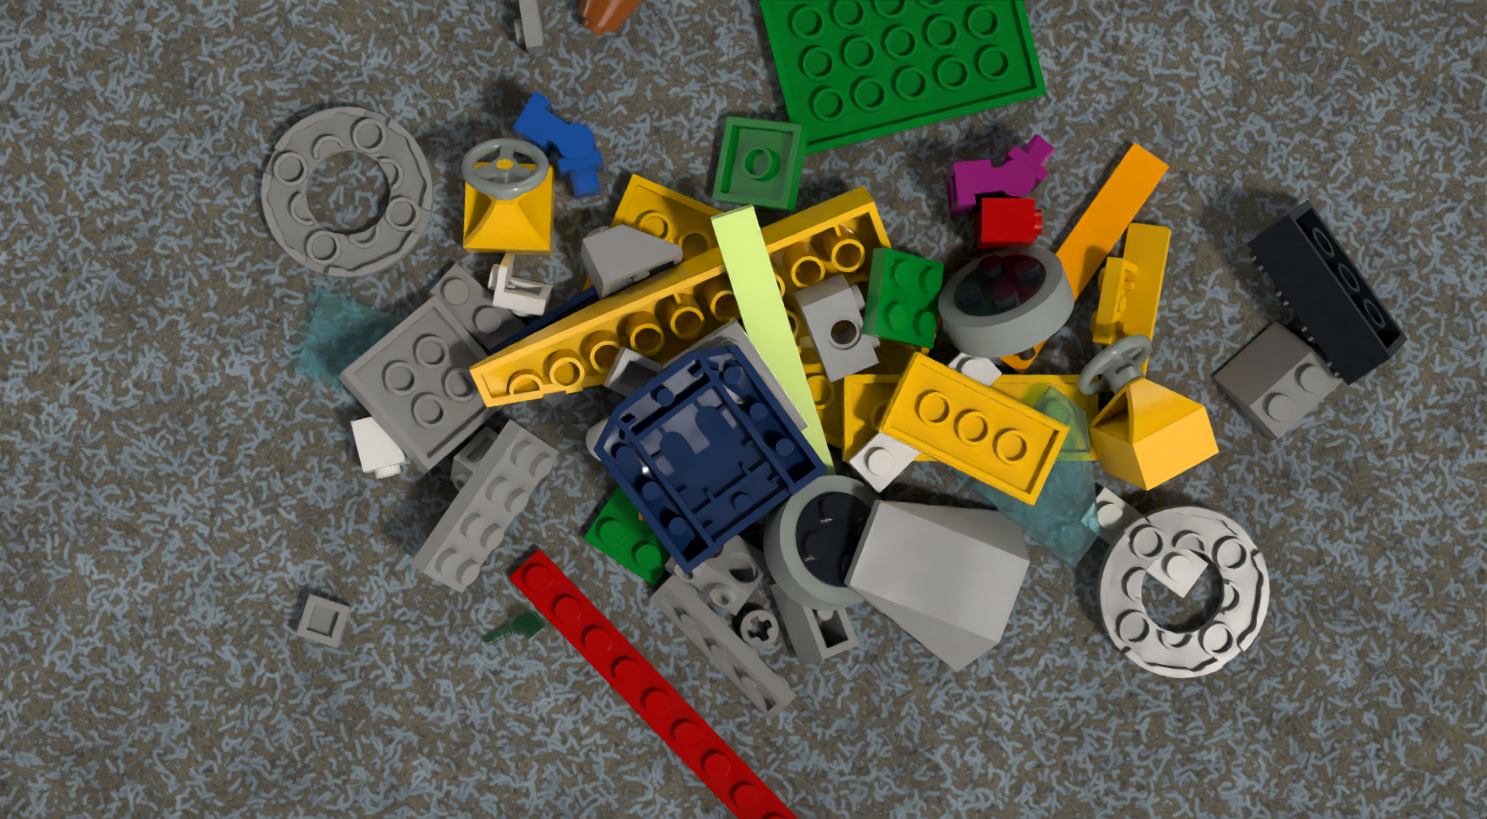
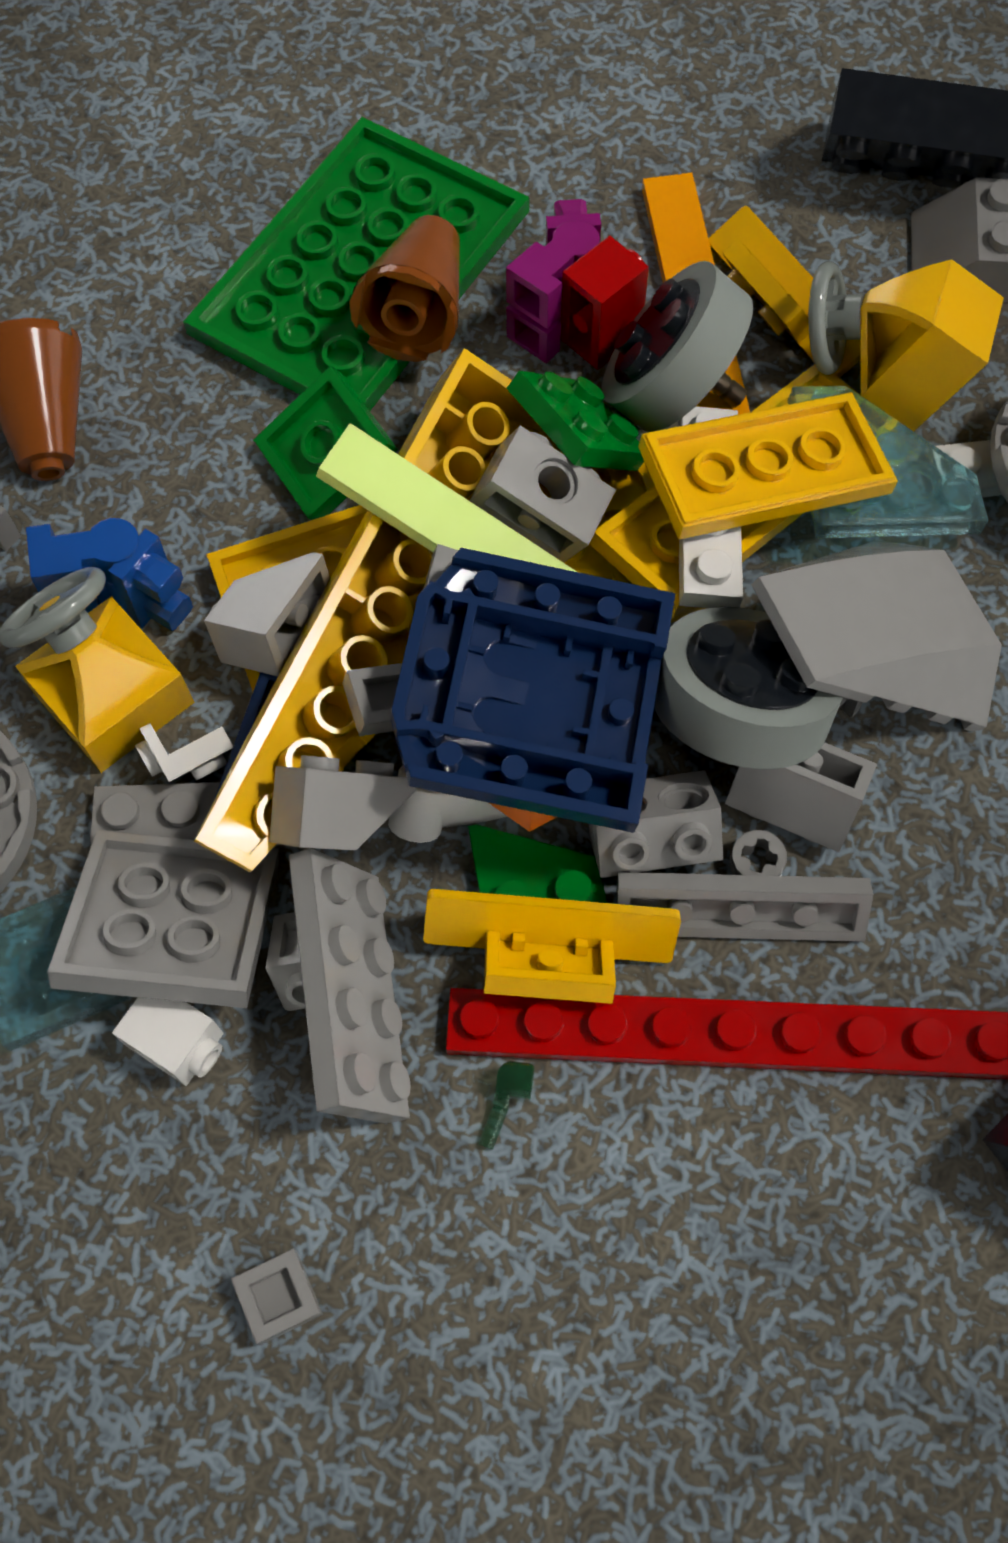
camera: 40 degrees left, 20 degrees down
(556, 412) = (333, 808): none -> light grey slope
(603, 579) = (548, 943): none -> yellow bracket
(903, 112) = (412, 292): none -> dark orange cone

